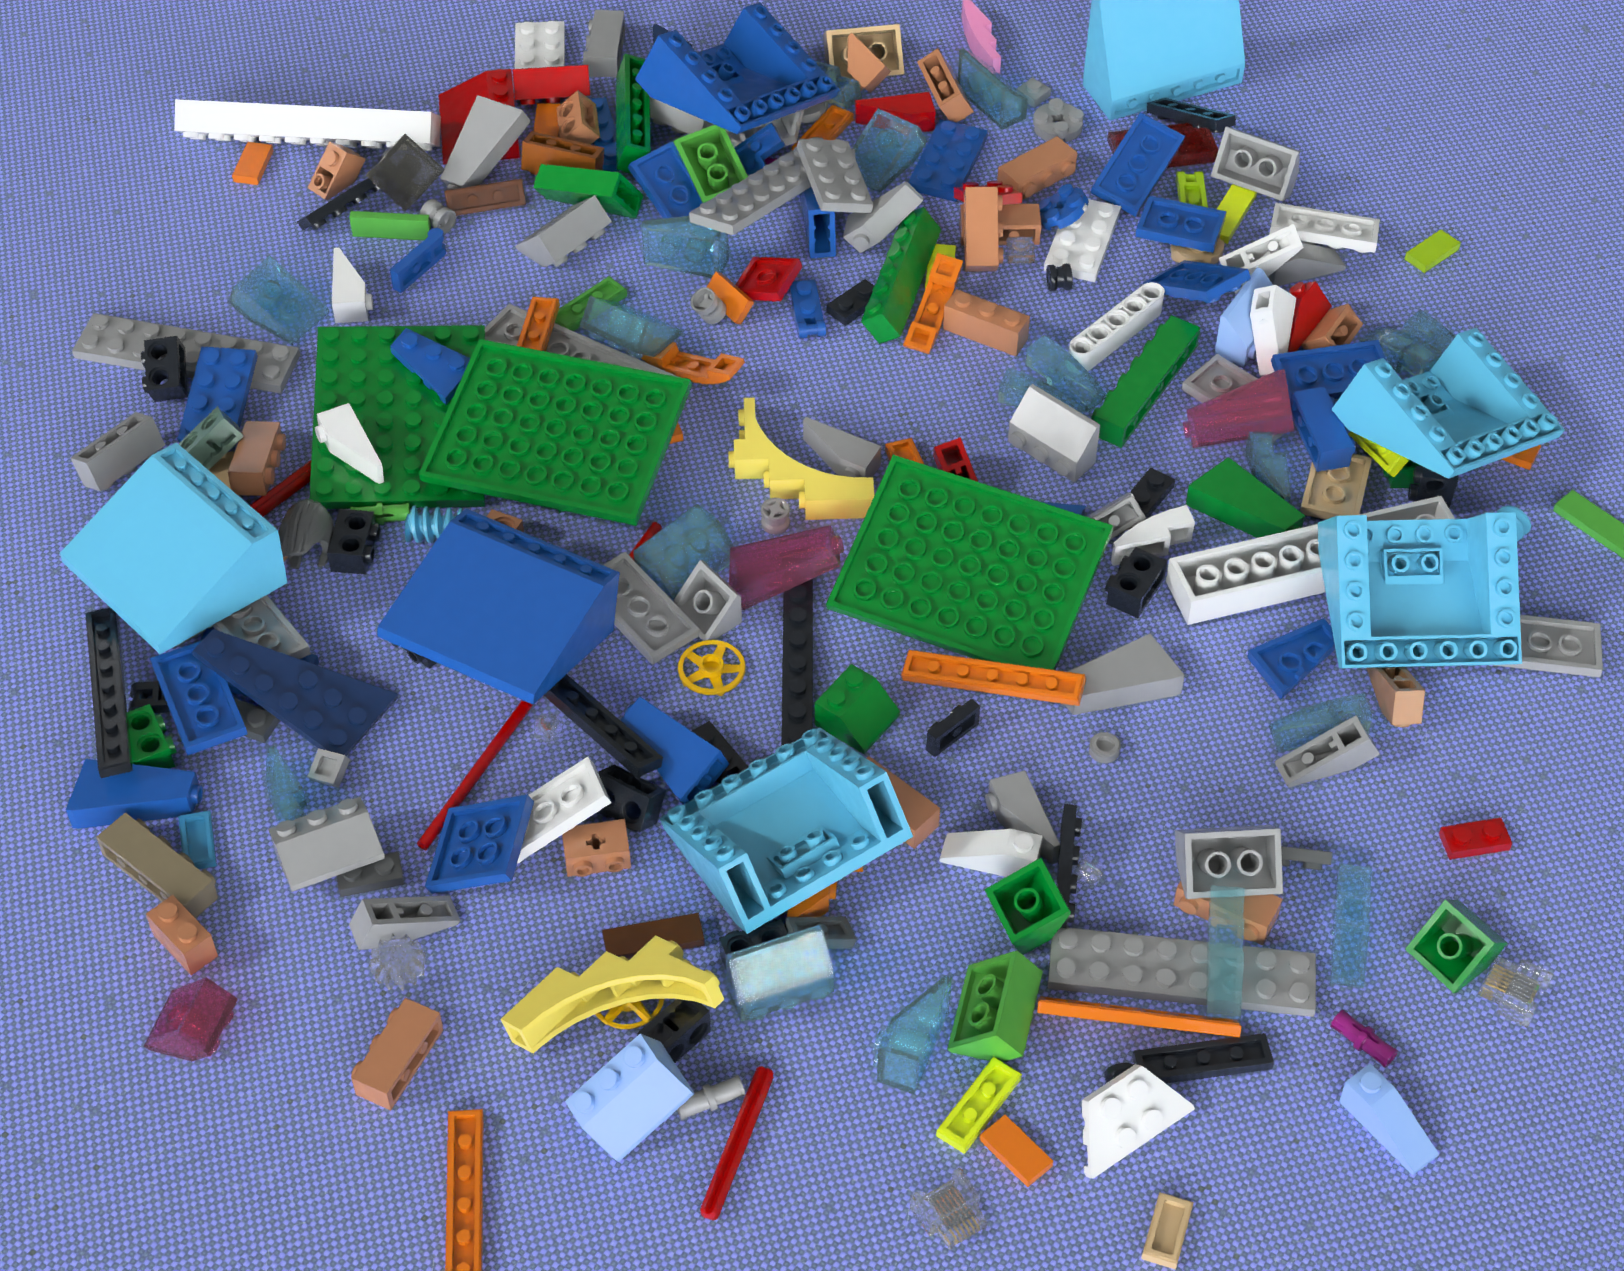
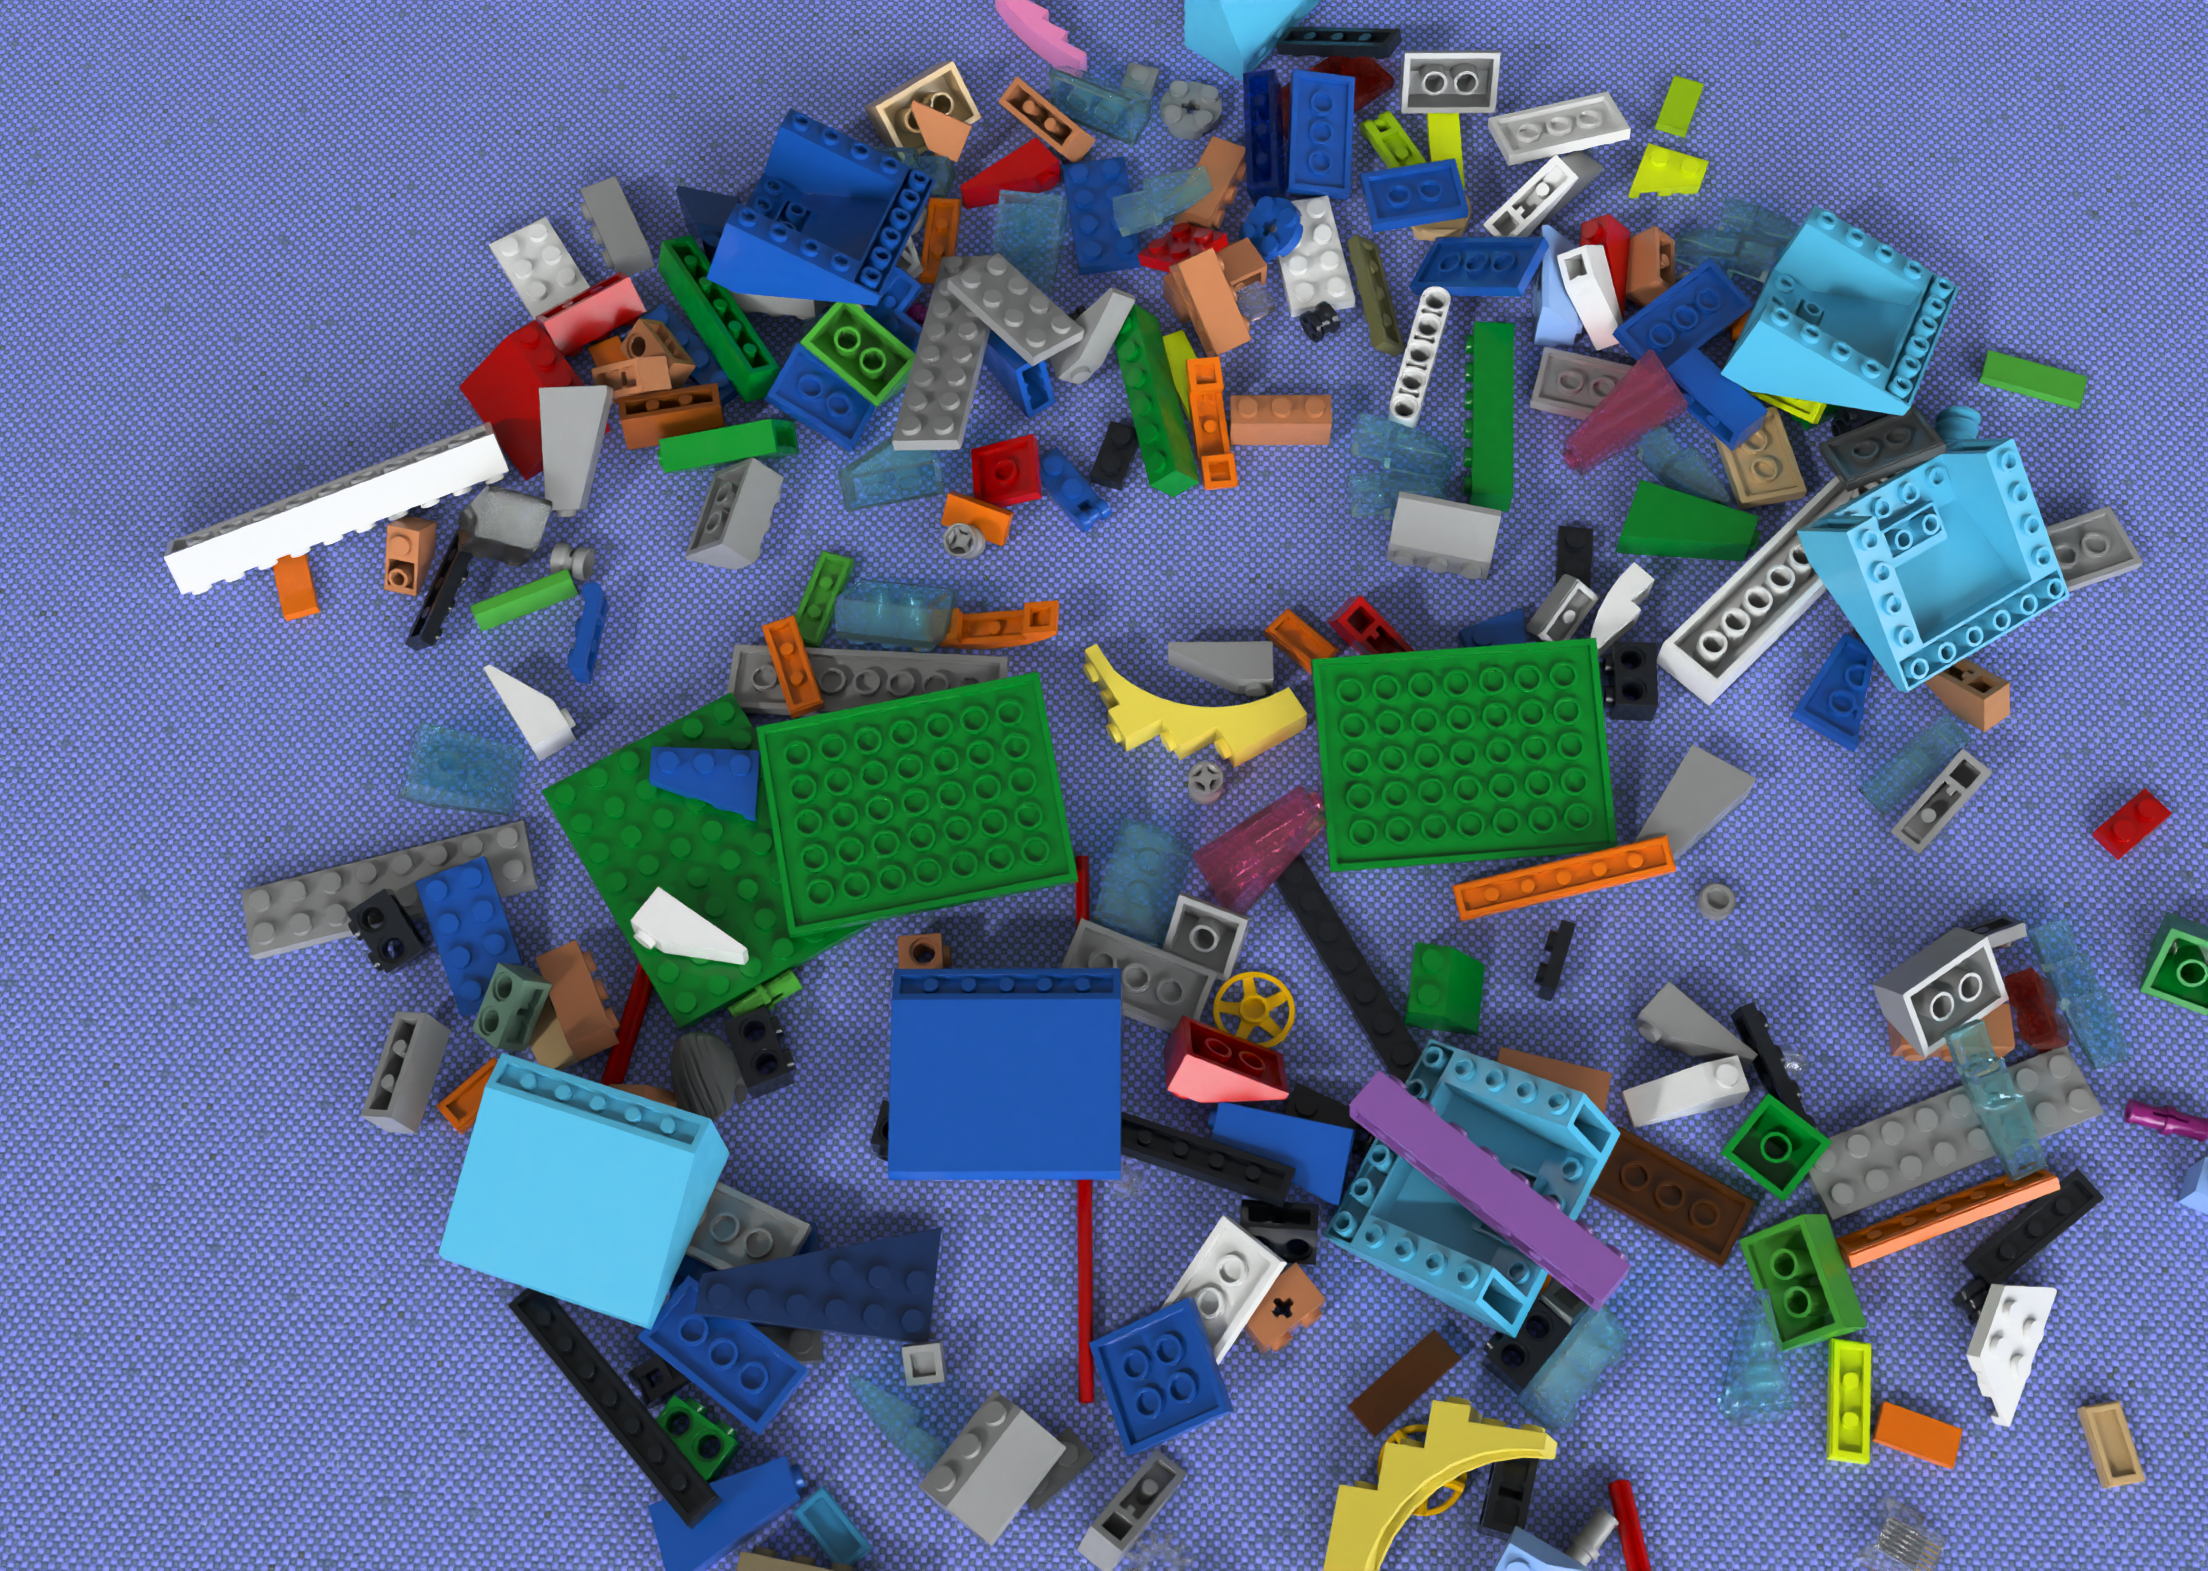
camera: 25 degrees left, 15 degrees up
(427, 525) = (843, 984): medium azure piece -> none
(486, 197) = (611, 508): reddish brown tile -> none
(550, 120) = (634, 376): none -> nougat brick
(653, 674) = (1221, 1067): none -> red slope
(787, 823) = (1489, 1190): none -> medium lavender brick
(934, 914) = (1672, 1198): none -> reddish brown tile
(988, 156) = (1160, 200): none -> clear light blue slope
(1094, 146) = (1263, 135): none -> clear blue brick
(1112, 275) = (1375, 296): none -> olive plate
(1303, 915) = (2036, 1007): none -> clear red brick
(1393, 288) = (1668, 173): none -> neon yellow wing
(1425, 501) = (1881, 448): none -> dark grey tile

